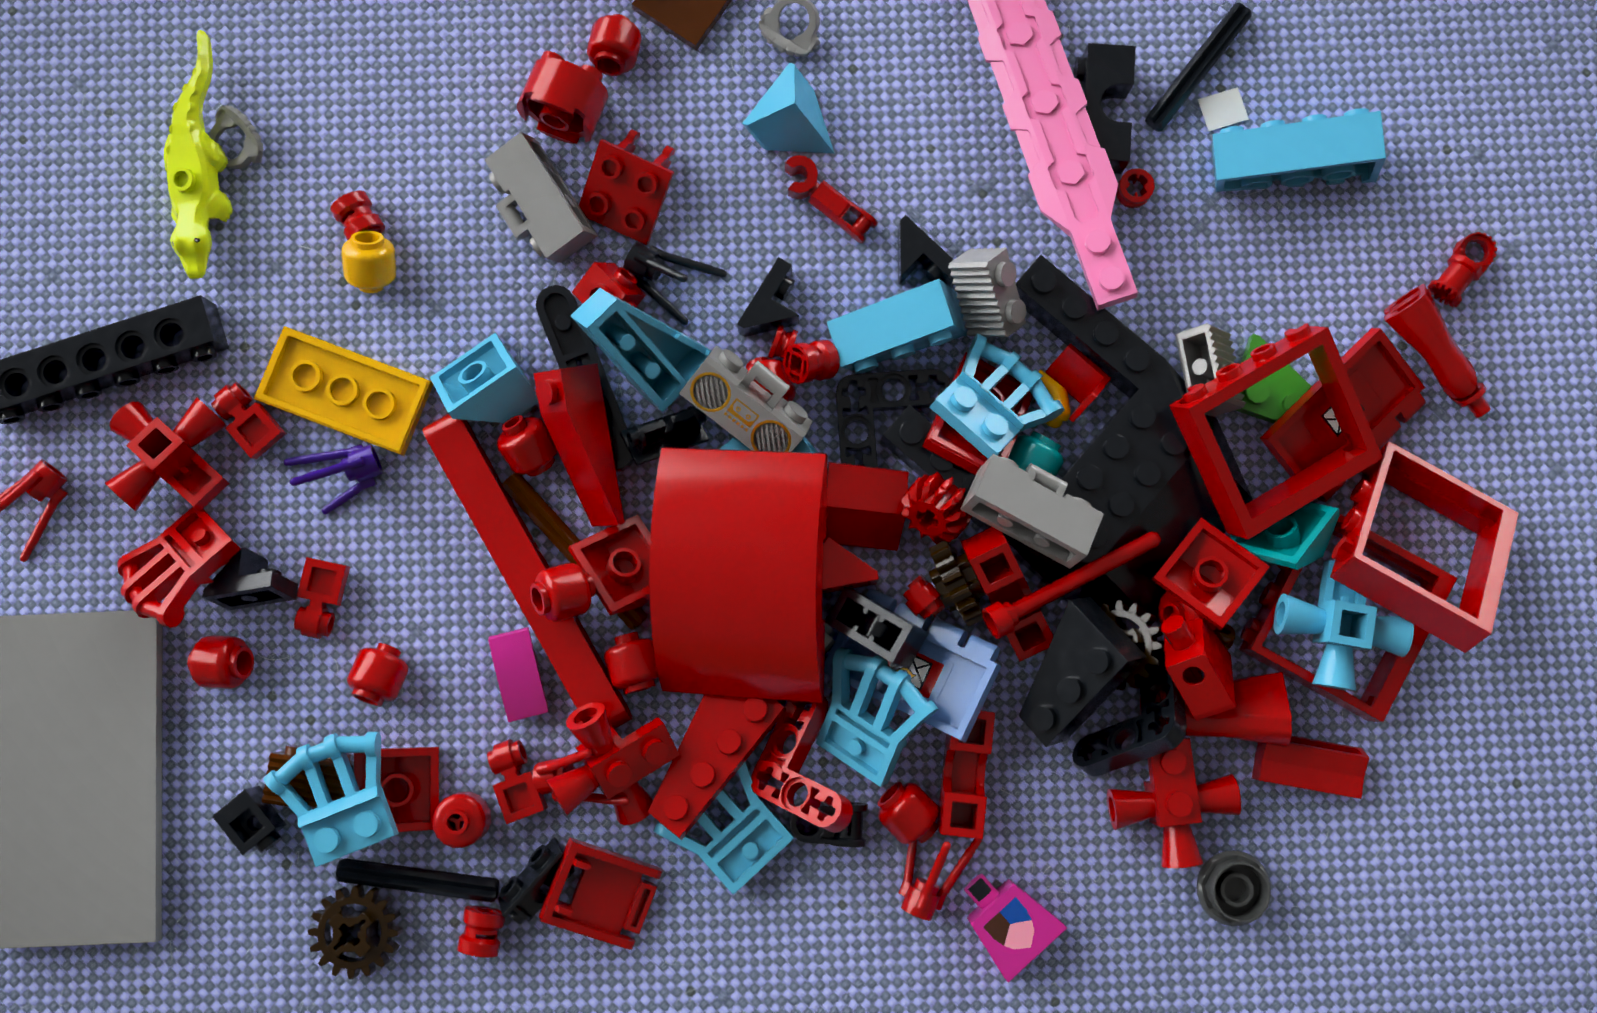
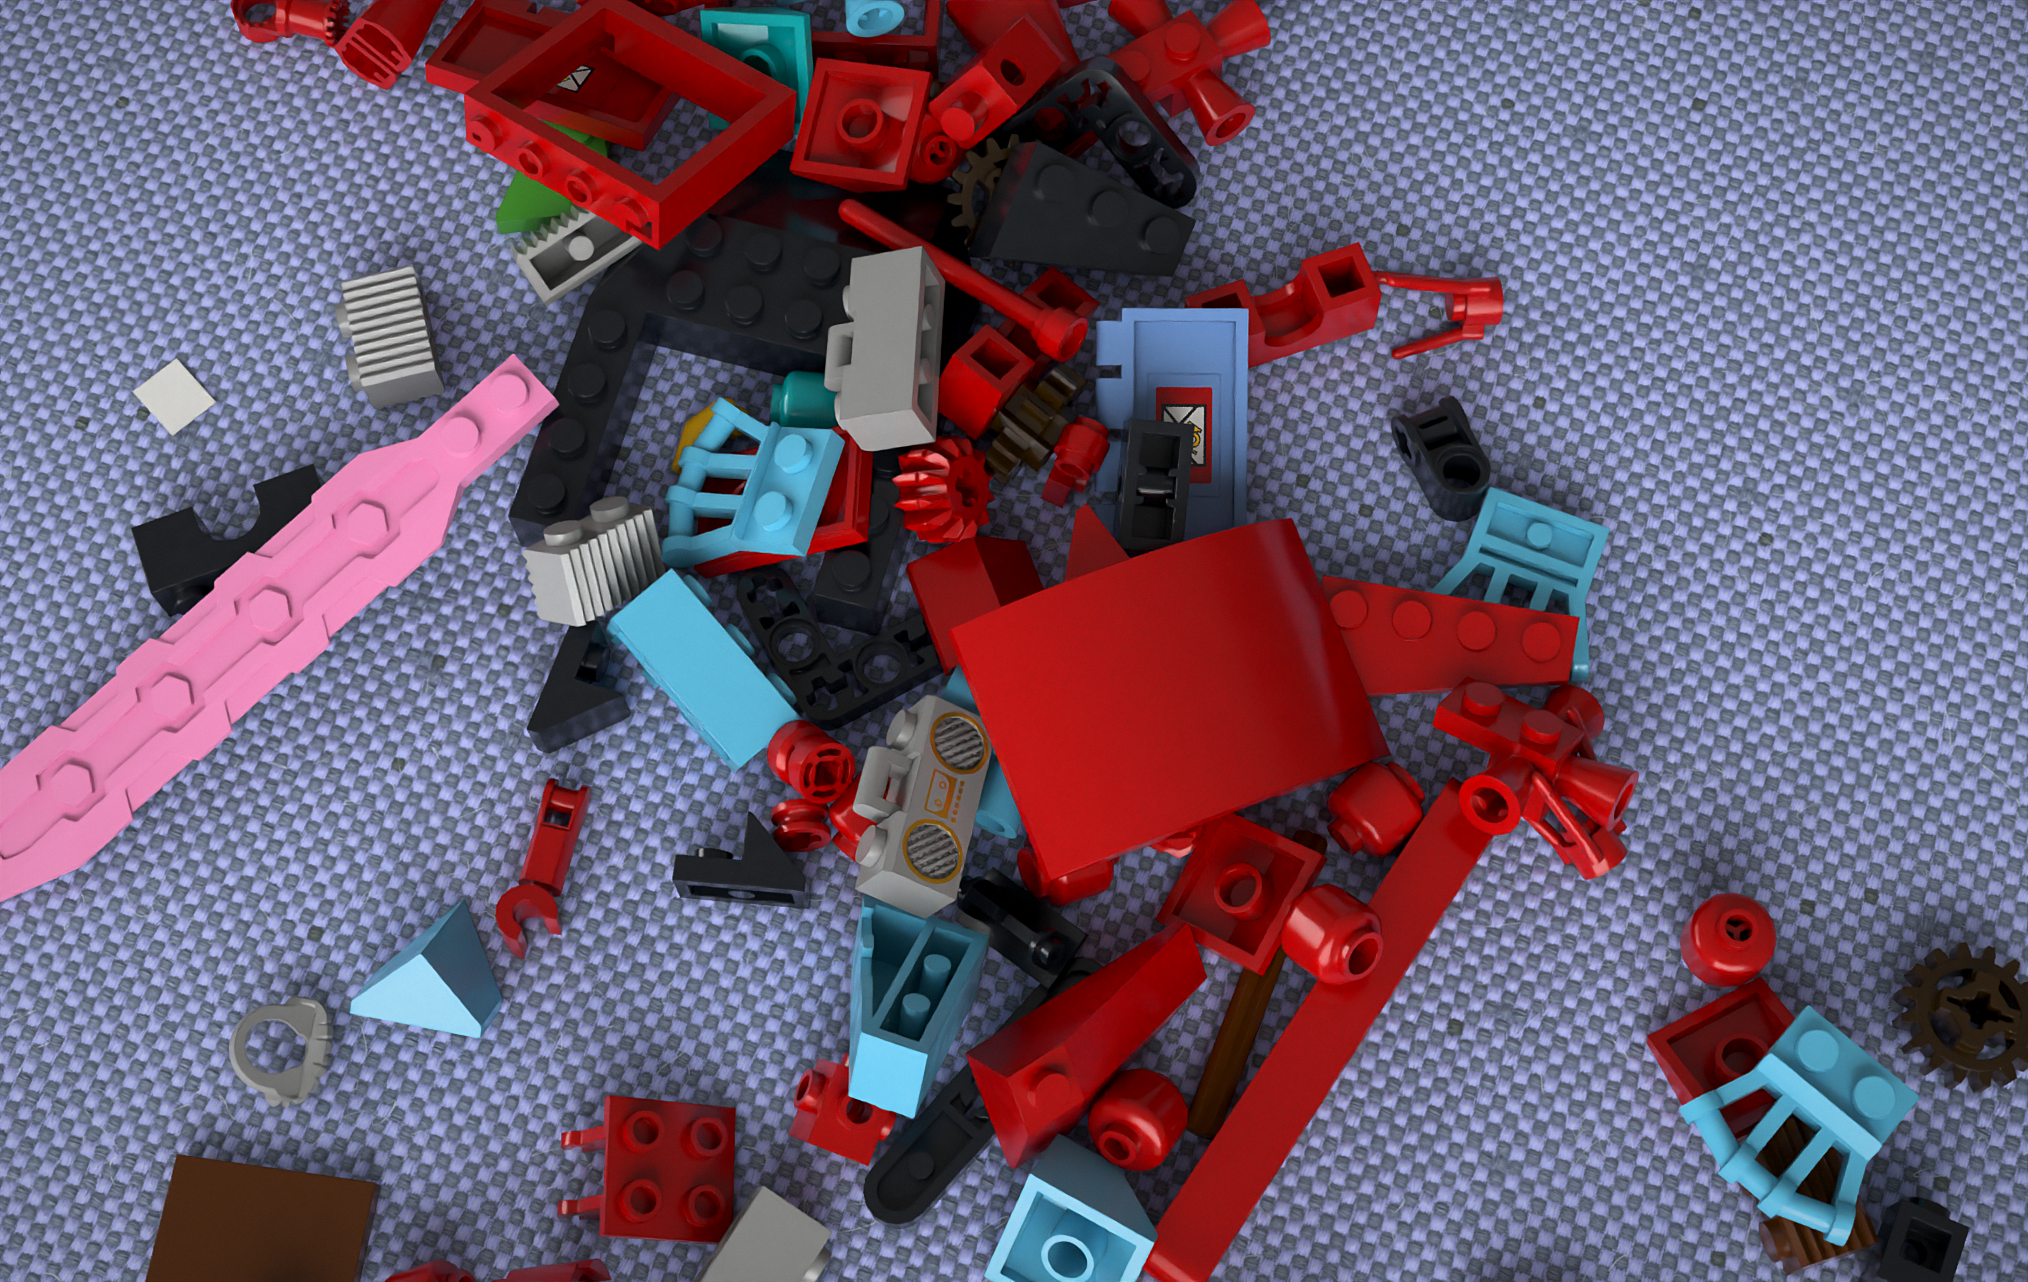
camera: 115 degrees left, 15 degrees down
(377, 675) = (1596, 1175): red head -> none
(417, 880) = (1844, 962): black axle -> none
(481, 931) = (1860, 840): red wheel -> none
(517, 792) = (1642, 888): red plate -> none
(518, 674) = (1479, 968): dark pink slope -> none
(522, 894) = (1769, 812): black hinge -> none
(605, 897) = (1712, 697): red container -> none
(649, 264) = (769, 1086): black plant -> none
(787, 768) = (1402, 535): red beam -> none
(856, 735) = (1310, 454): medium azure plate -> none
(908, 813) = (1374, 363): red head -> none
(1010, 924) = (1445, 182): dark pink torso -> none
(1079, 377) = (665, 402): red bracket -> none
(1135, 175) = (340, 440): red bush -> none
(1198, 67) = (123, 449): black axle -> none
(1201, 240) = (390, 337): none -> light grey brick
(1300, 151) = (208, 259): medium azure wedge -> none

